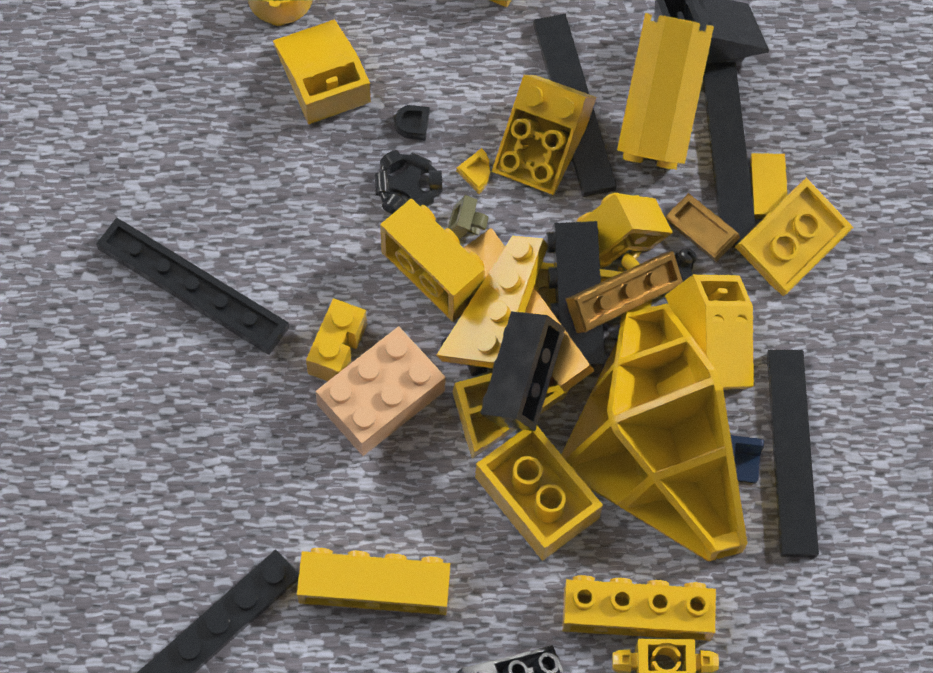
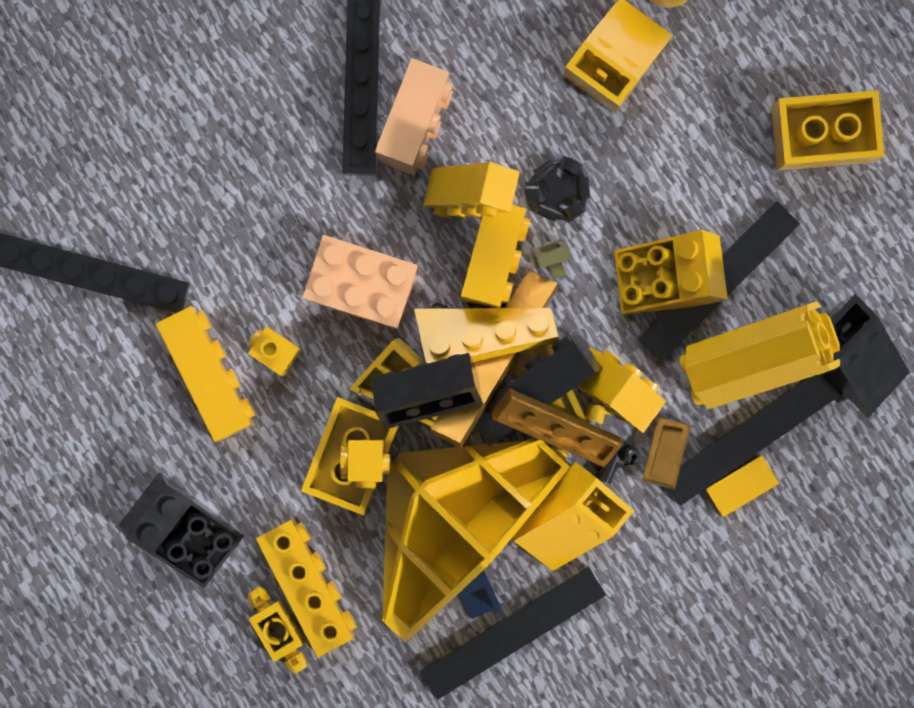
camera: 65 degrees right, 20 degrees up
(263, 254) = (414, 117): none -> light nougat brick
(339, 331) = (390, 217): yellow brick -> none
(363, 232) = (471, 190): none -> yellow brick
(392, 506) = (273, 350): none -> yellow brick
(412, 122) = (618, 159): black tile -> none
(476, 170) = (606, 238): yellow tile -> none
(554, 466) = (364, 462): none -> yellow brick
(794, 237) = (704, 533): yellow tile -> none

